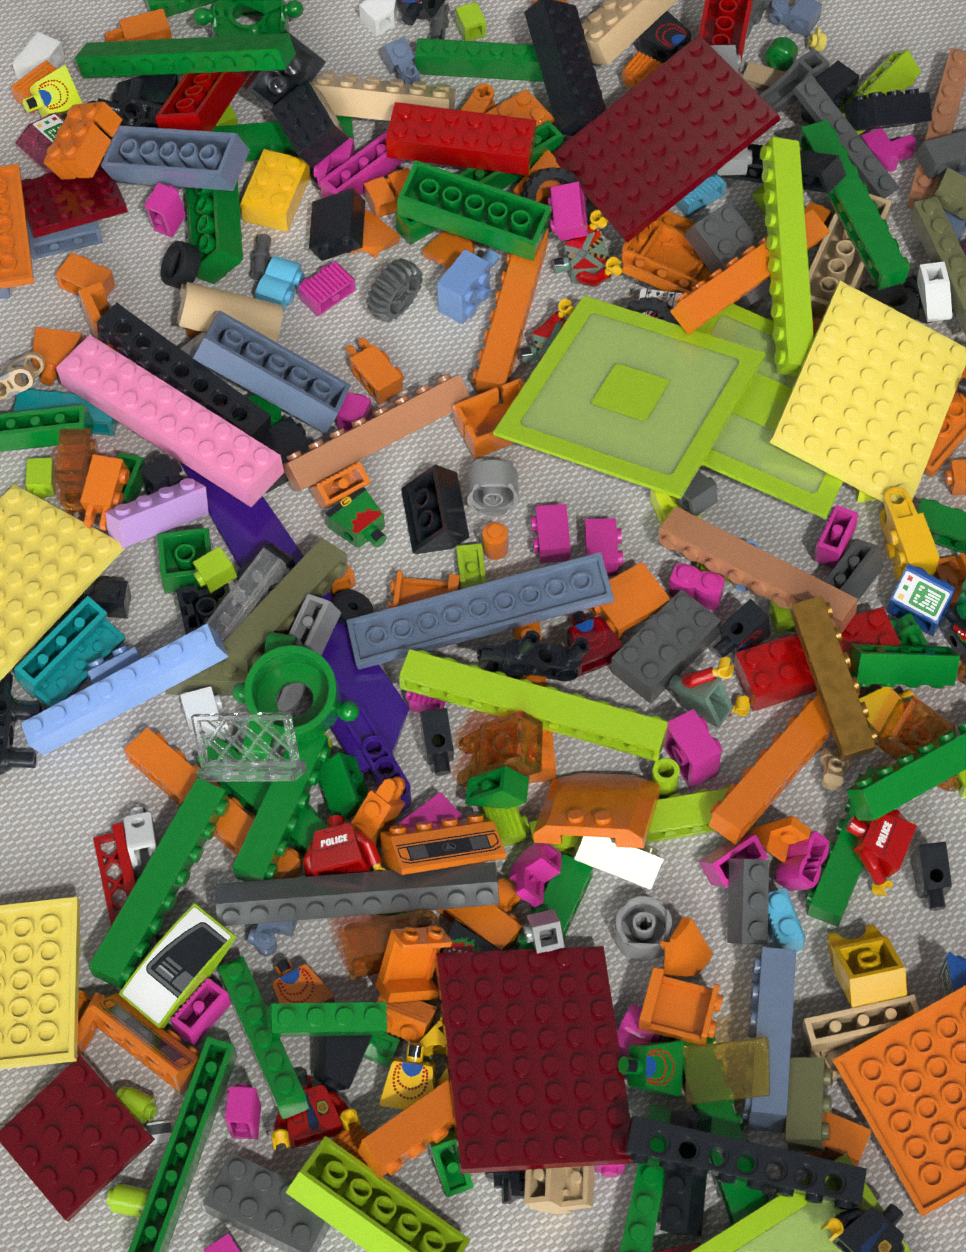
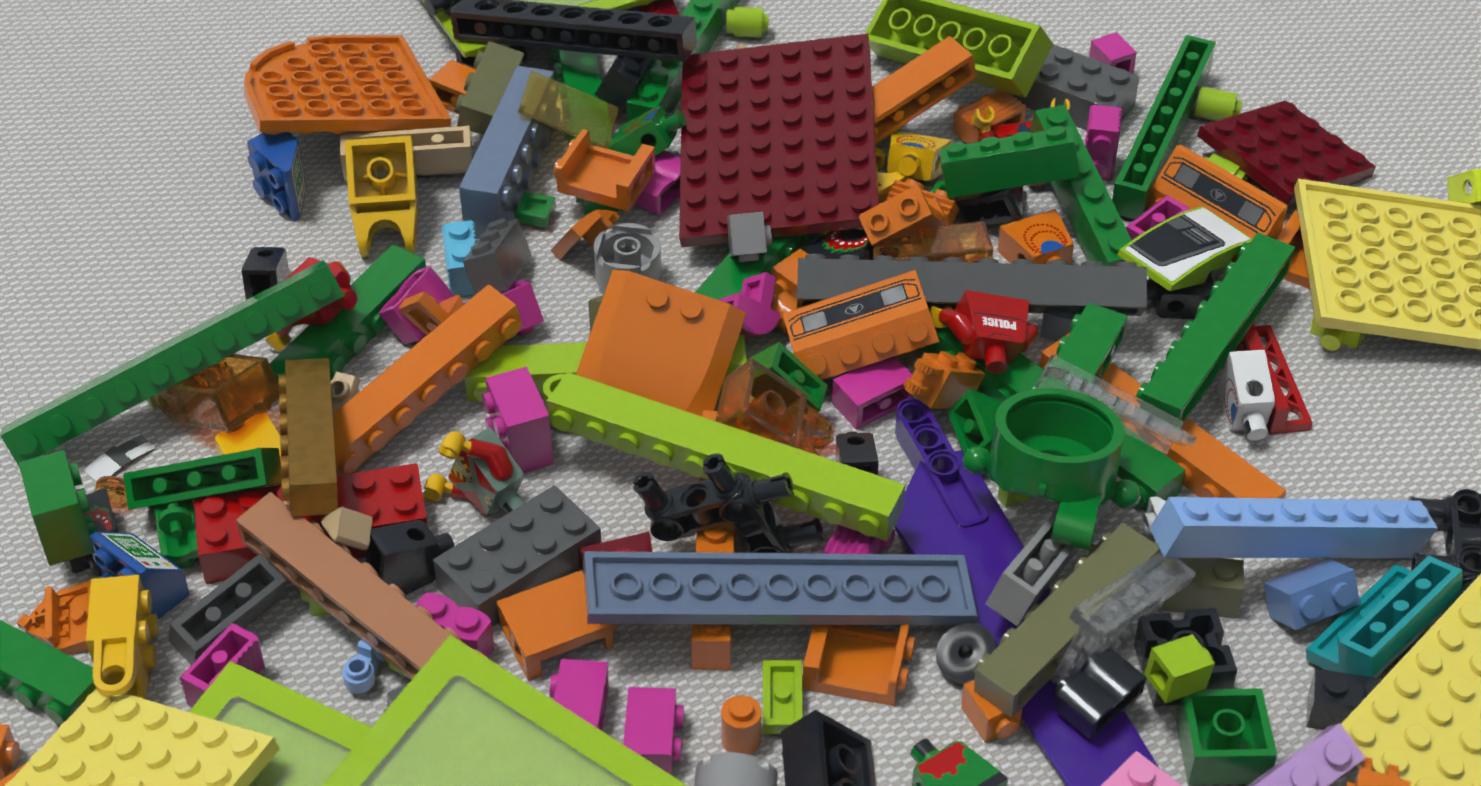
camera: 175 degrees left, 15 degrees down
(736, 994) = (535, 209): none -> green plate
(779, 609) = (348, 527): none -> tan slope

